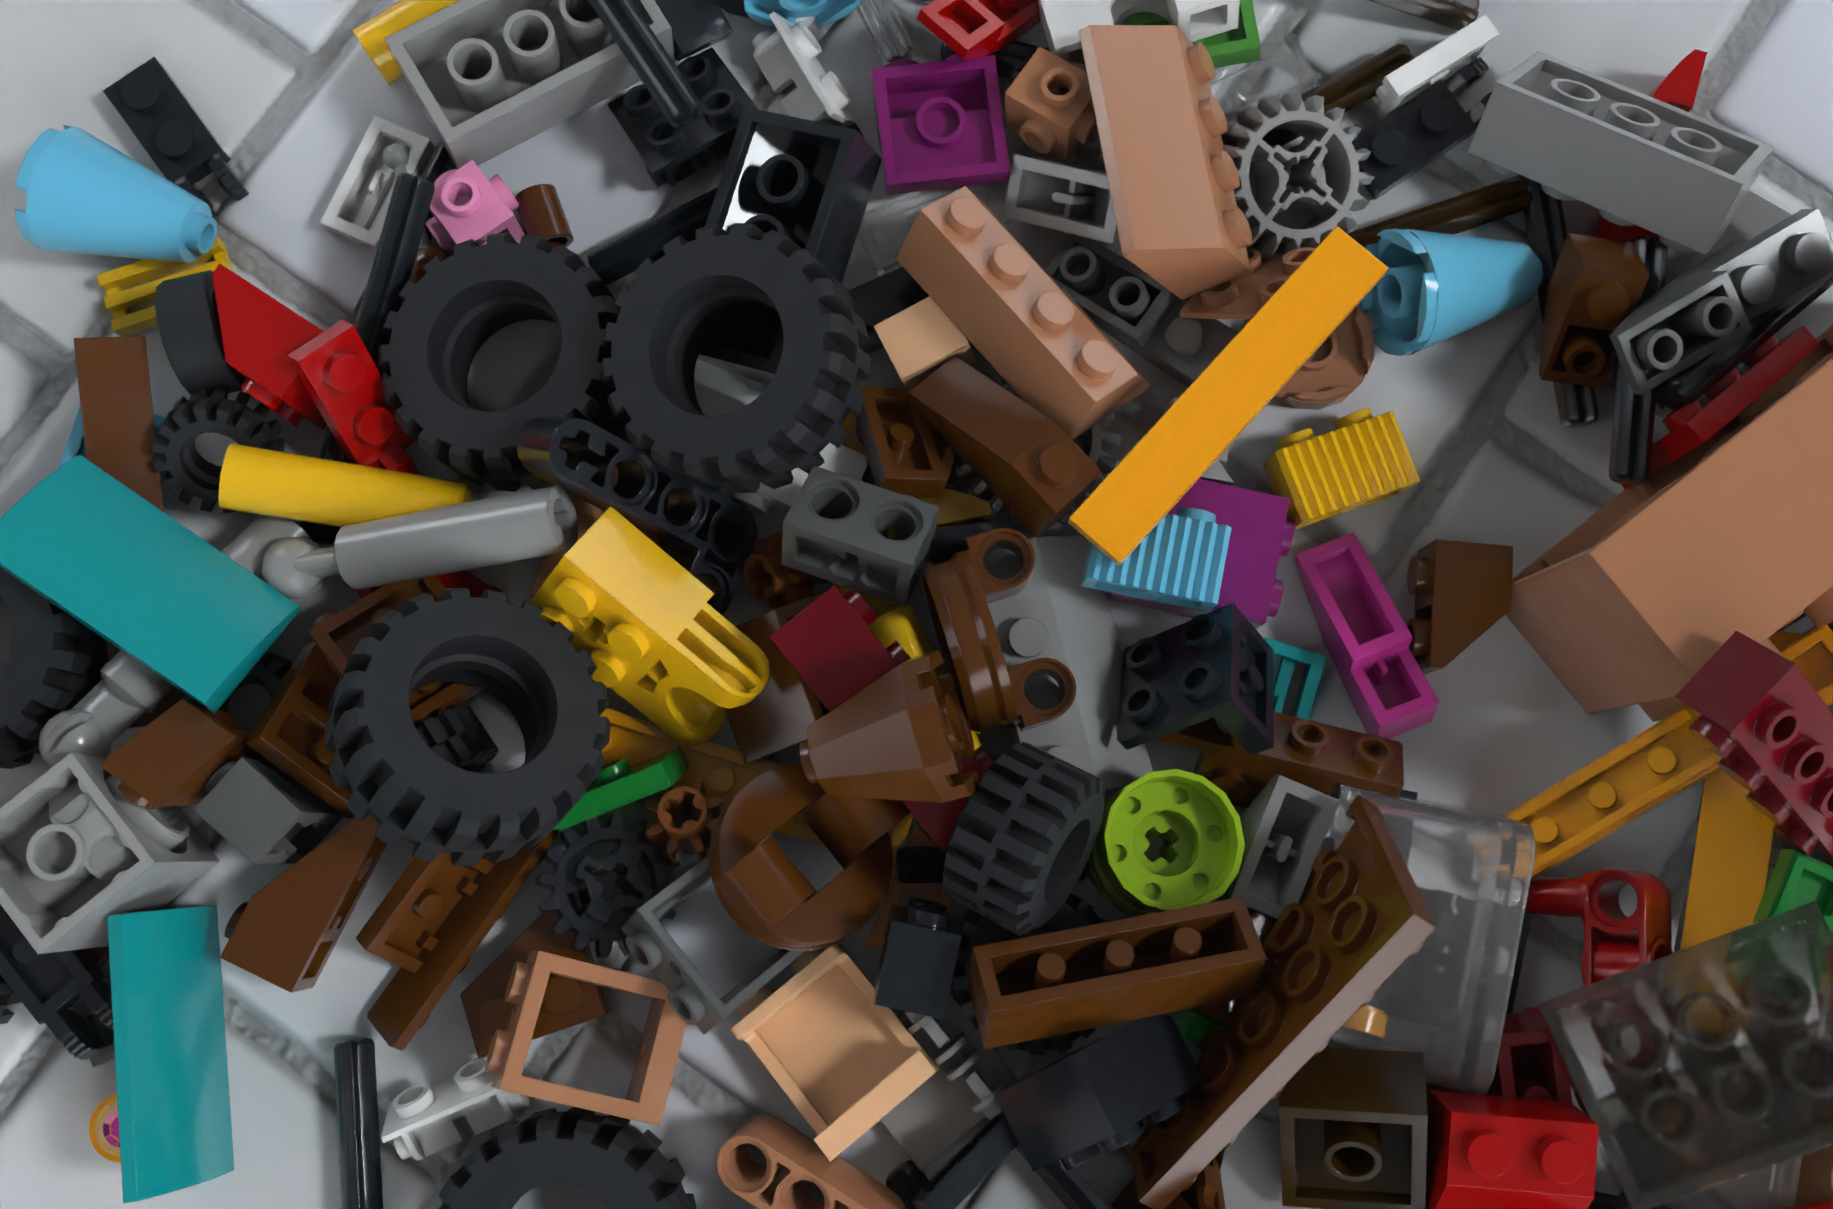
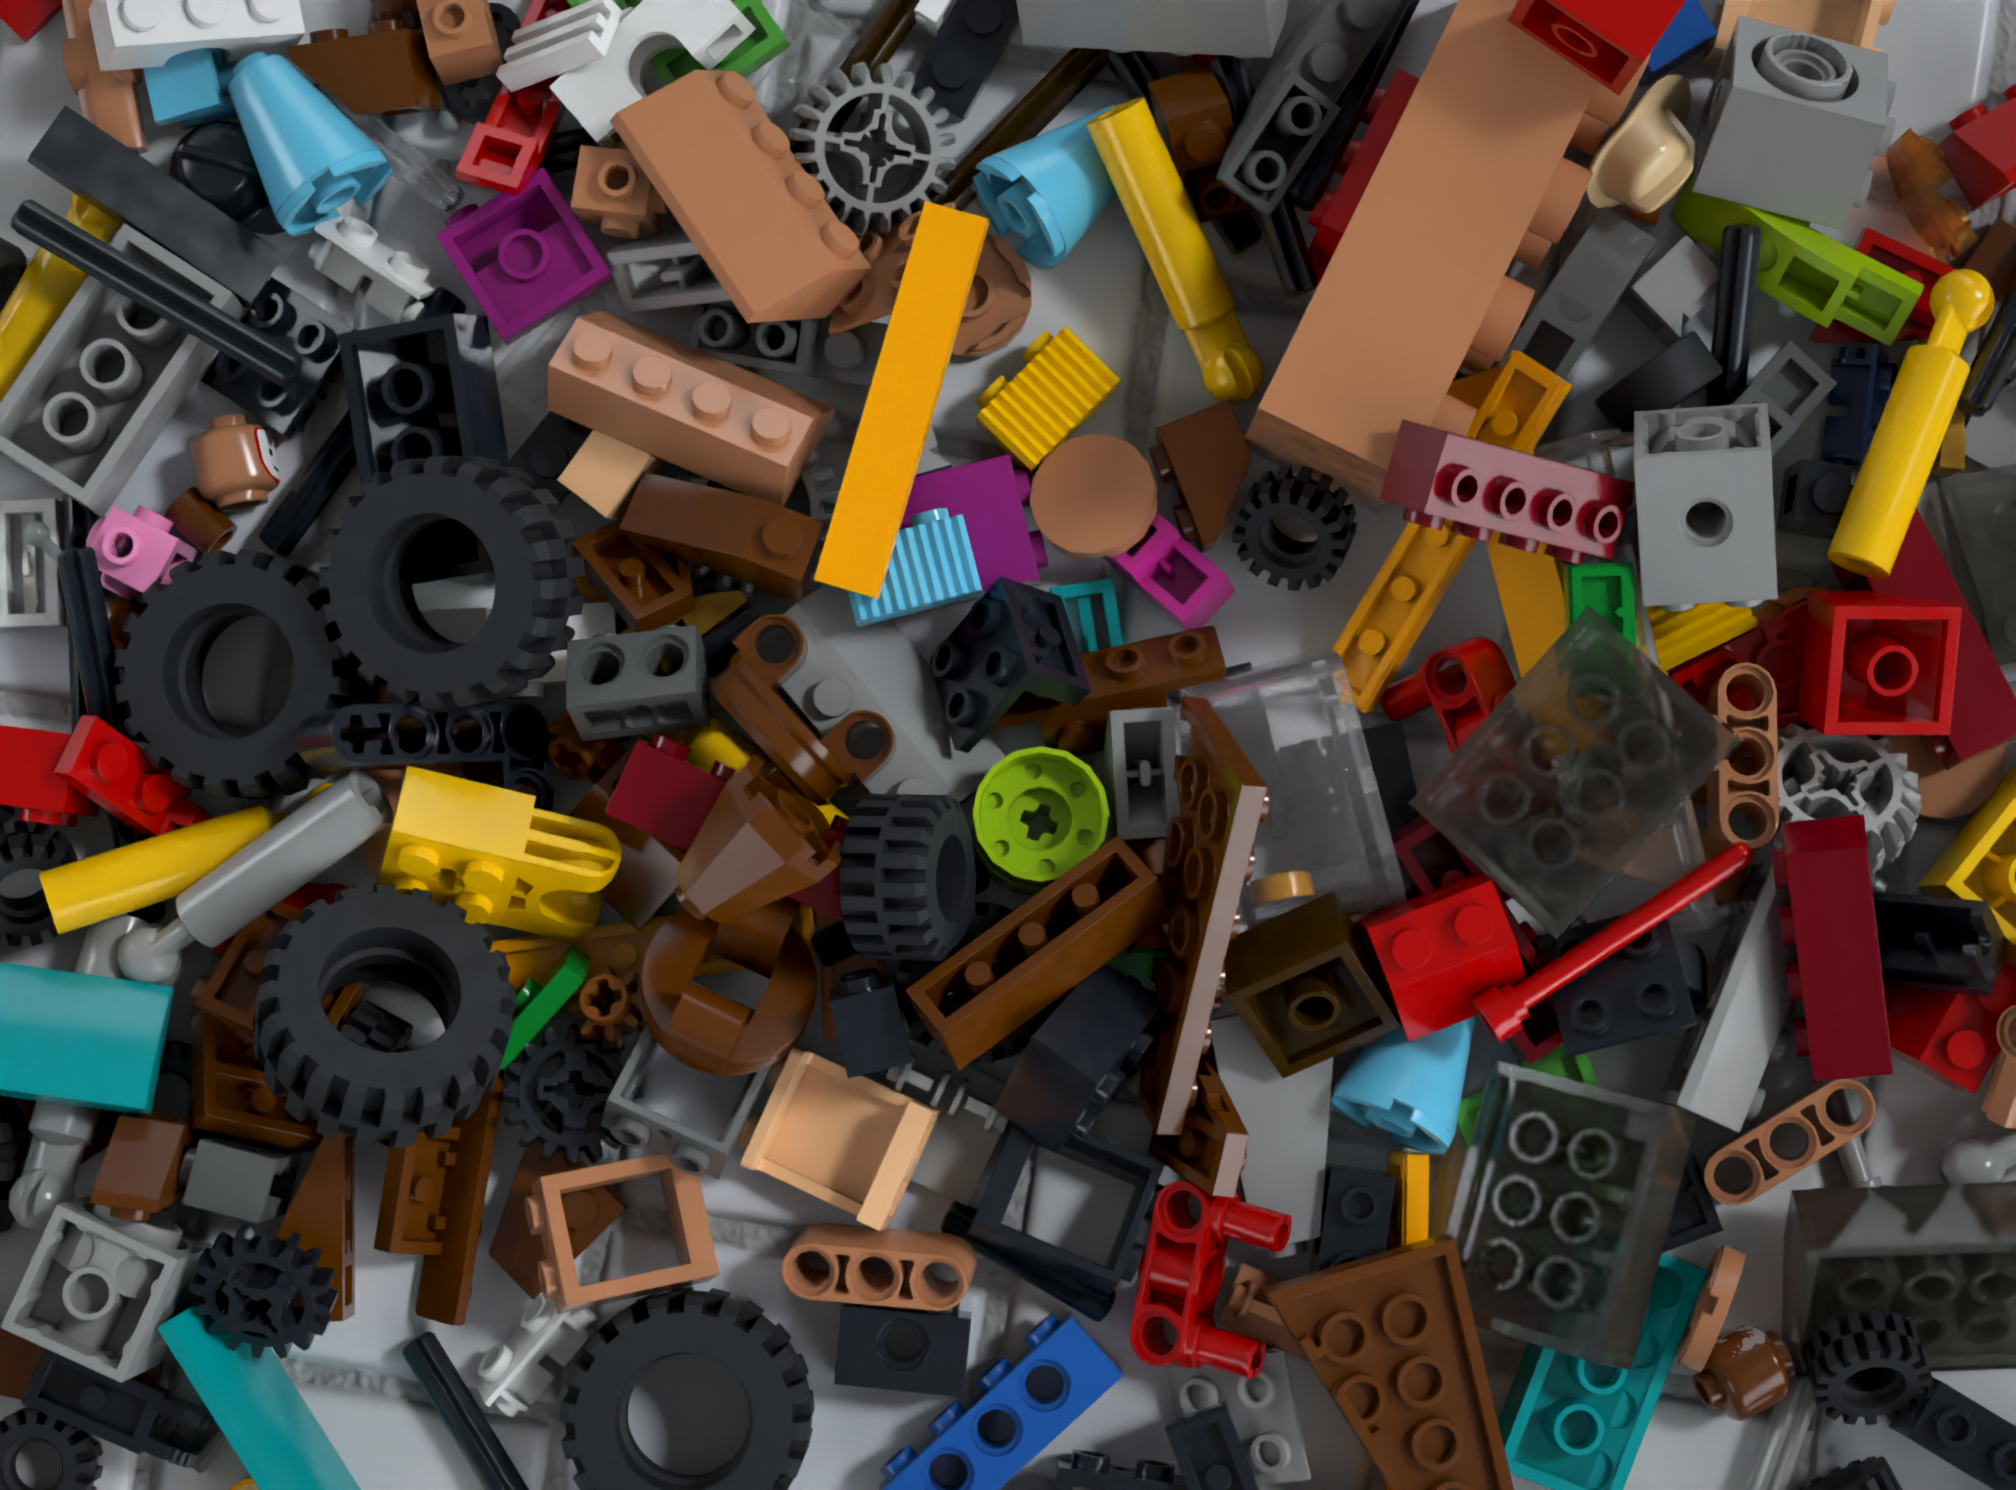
camera: 20 degrees left, 5 degrees up
(227, 929) = (263, 1291): none -> black gear
(599, 182) = (235, 463): none -> nougat head
(1348, 574) = (1094, 496): none -> nougat tile
(1504, 722) = (1308, 501): none -> black tyre
(1528, 387) = (1177, 248): none -> yellow piece

